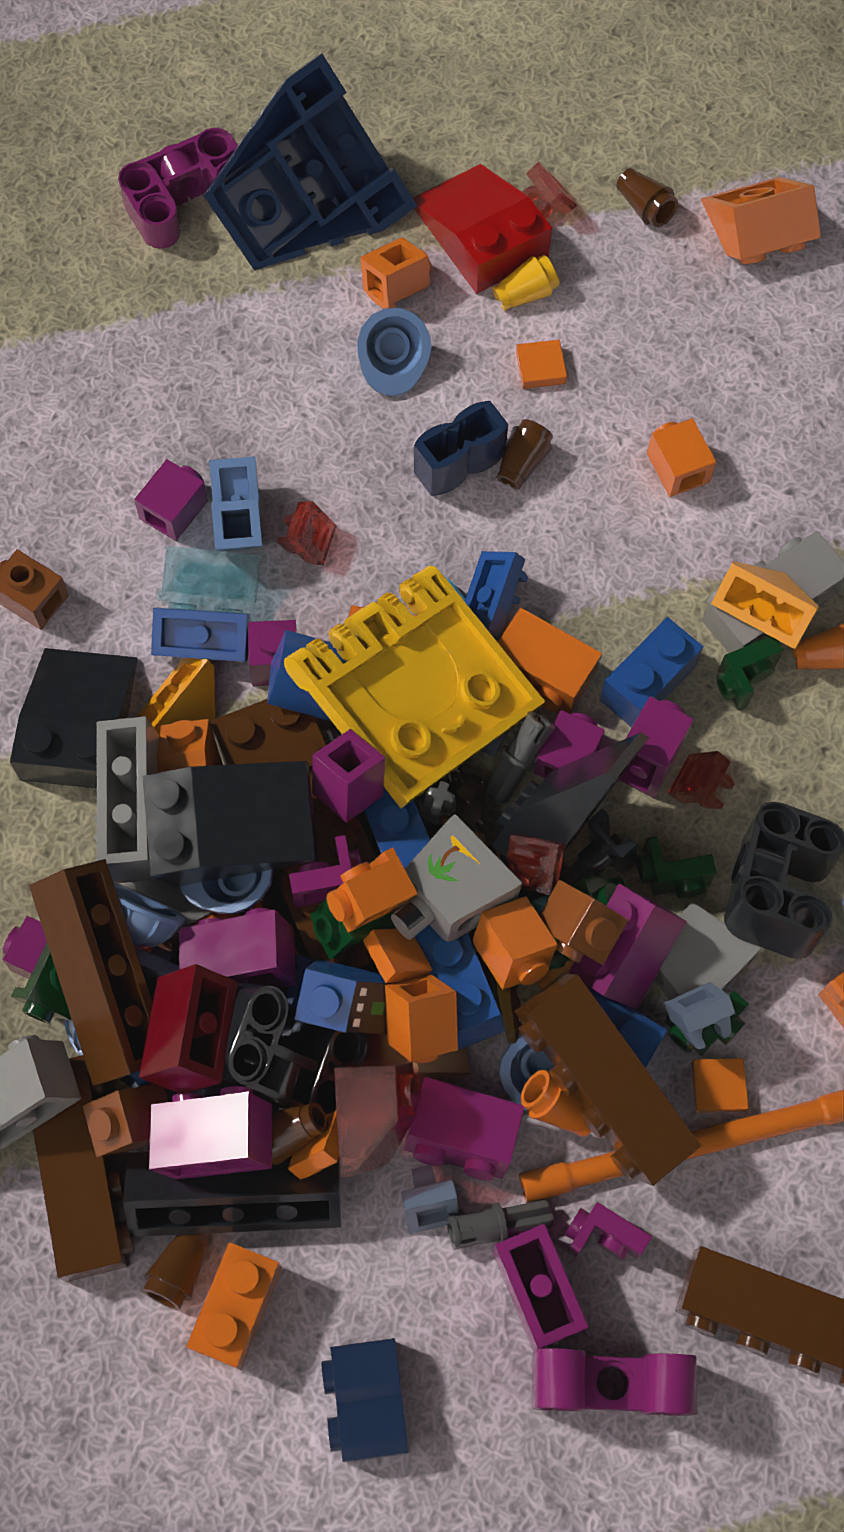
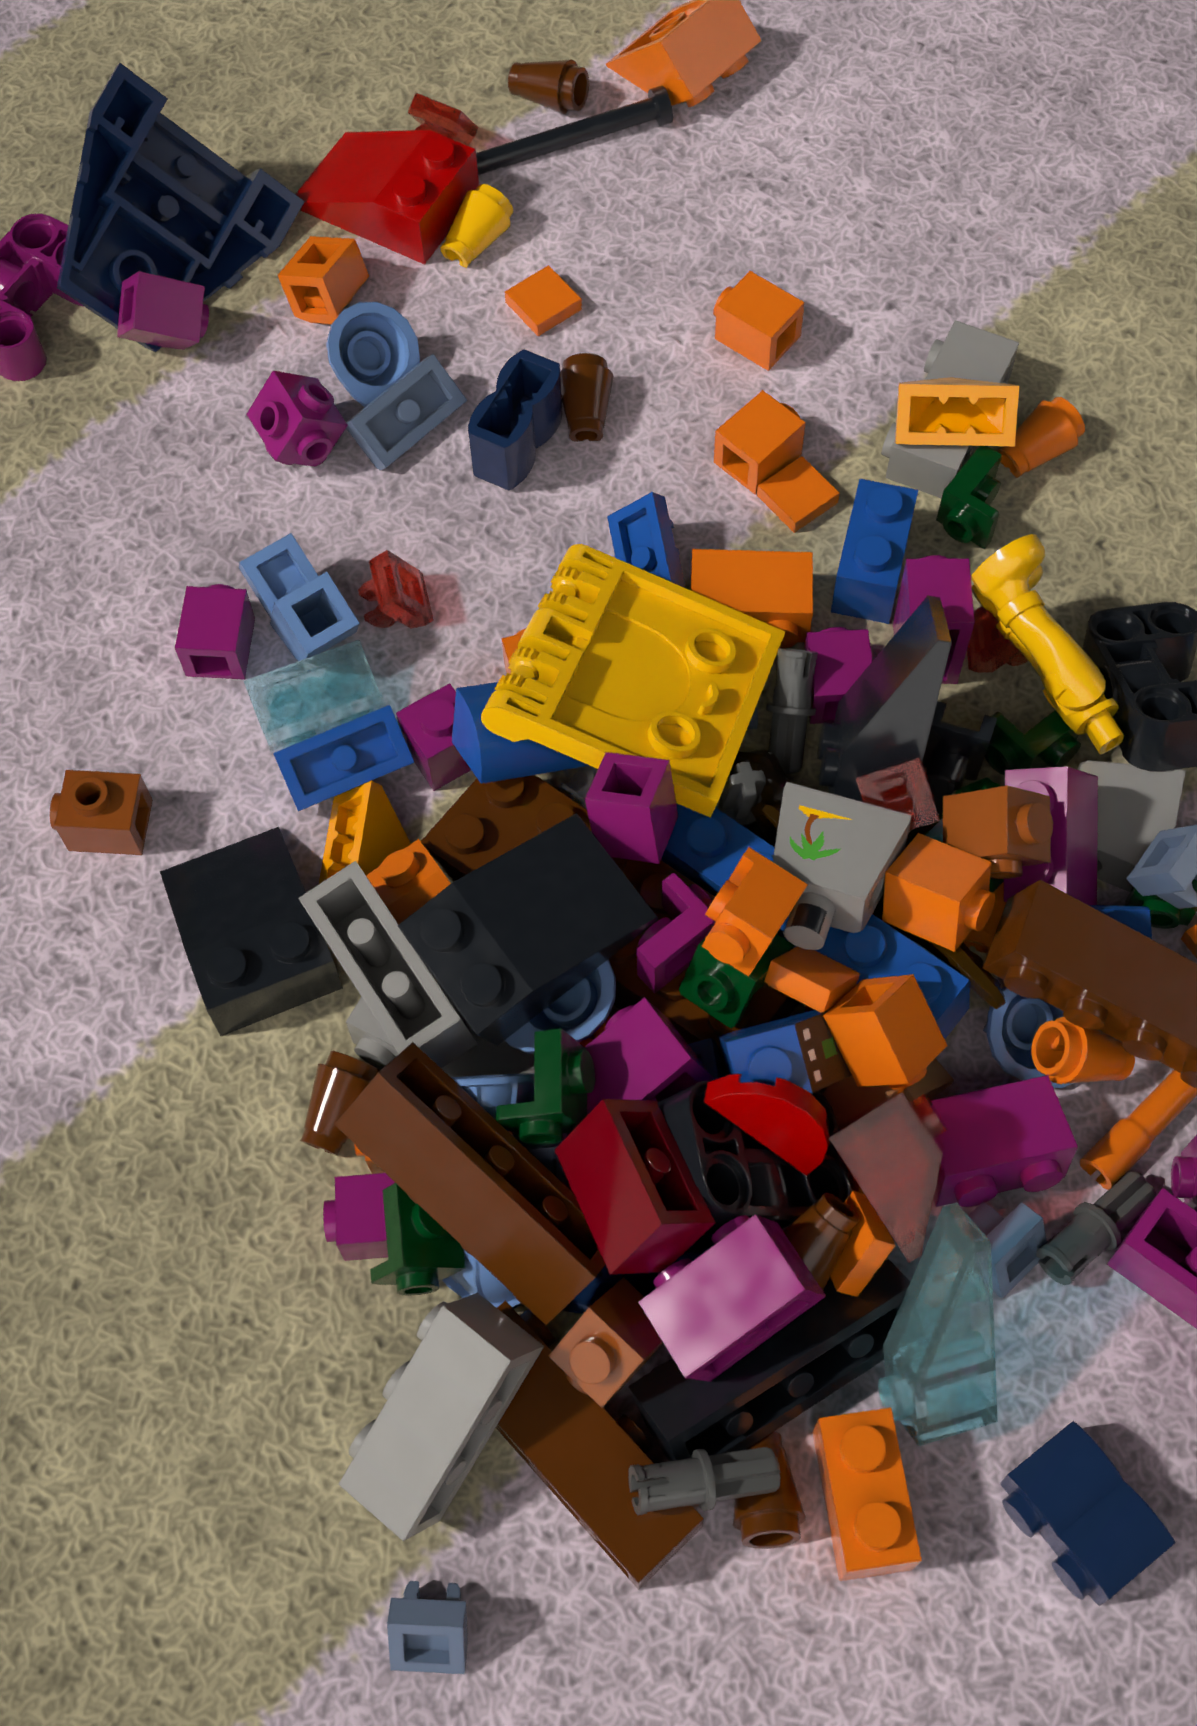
camera: 25 degrees left, 5 degrees down
(65, 854) = (333, 1092): none -> reddish brown cone
(134, 1238) = (703, 1479): none -> dark grey axle
(183, 940) = (561, 1085): none -> dark green bracket
(267, 246) = (162, 311): none -> magenta brick
(309, 1035) = (777, 1116): none -> red tile
(312, 371) = (296, 419): none -> magenta brick
(335, 1240) = (943, 1337): none -> clear light blue slope
(392, 402) = (405, 412): none -> sand blue plate
(624, 549) = (759, 441): none -> orange brick
(629, 601) = (798, 494): none -> orange tile
(641, 243) = (655, 107): none -> black bar
(713, 834) = (1067, 672): none -> yellow piece

